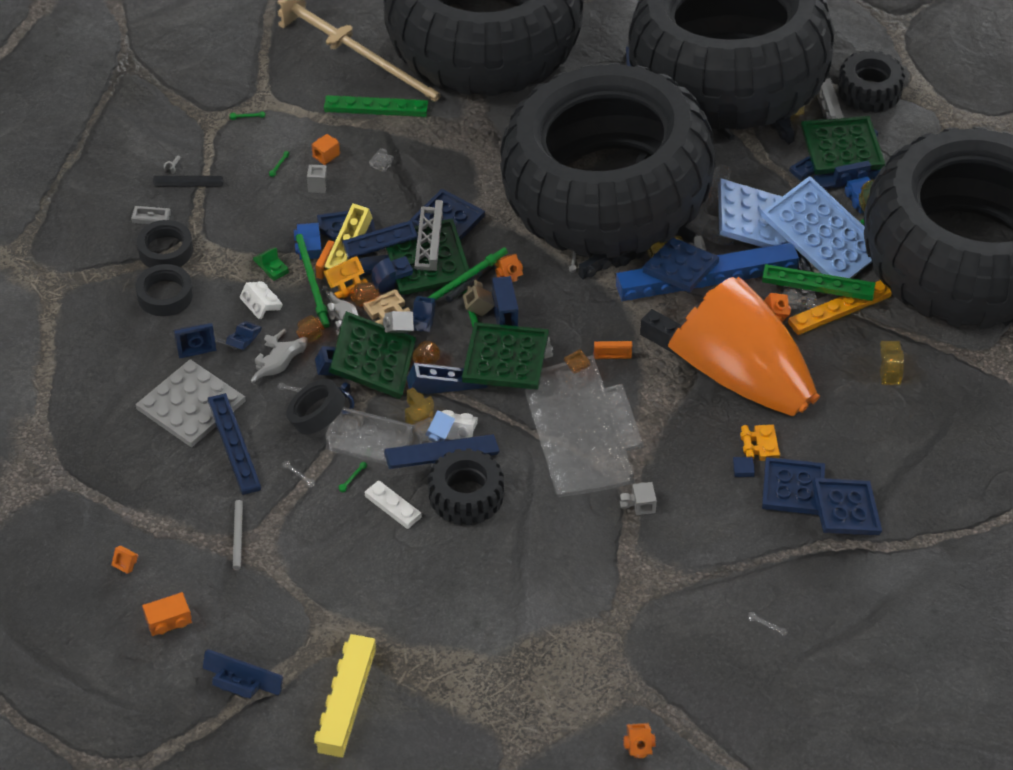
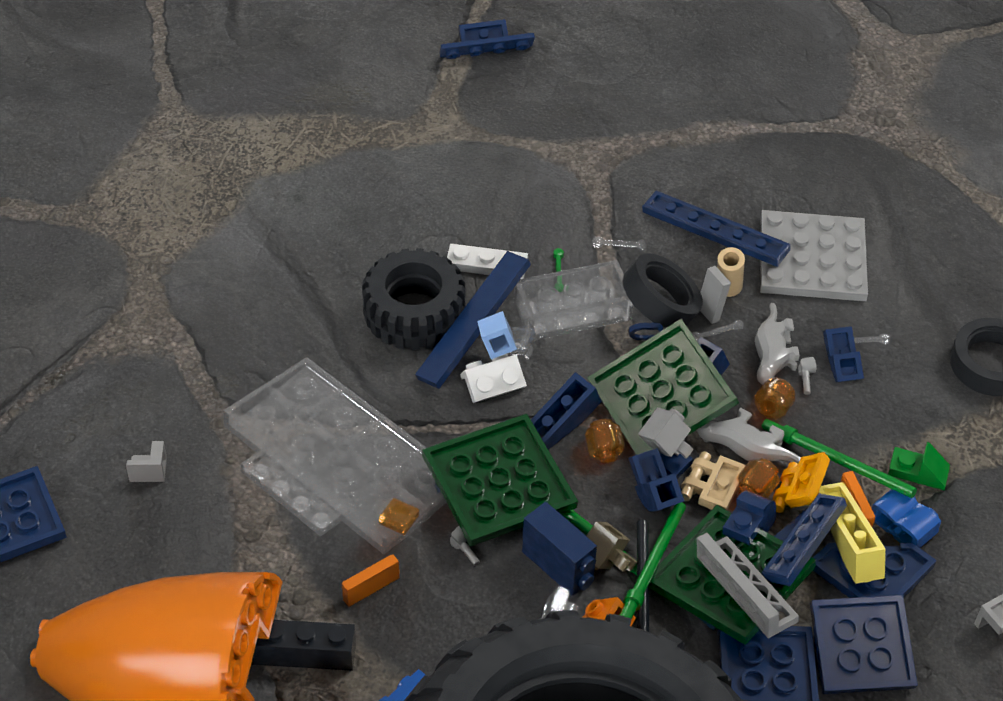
camera: 145 degrees right, 0 degrees up
(124, 559) = (698, 76): orange tile -> none
(167, 614) = (603, 49): orange brick -> none
(194, 340) = (888, 305): dark blue slope -> none
(237, 543) = (619, 156): light grey bar -> none
(259, 298) = (875, 410): white bracket -> none
(262, 398) = (731, 264): none -> tan brick
(285, 389) = (714, 294): none -> light grey tile
(346, 695) = (372, 72): light yellow brick -> none
(394, 199) = (863, 644): none -> dark blue plate
(420, 407) = (545, 367): clear yellow brick -> none
(527, 290) = (557, 602): none -> clear tile
(638, 733) = (52, 152): orange brick -> none
(642, 499) = (199, 400): light grey brick -> none
(695, 476) = (148, 467): none -> light grey panel
(743, 467) = (92, 514): dark blue tile -> none
(765, 440) = (78, 564): light orange plate -> none

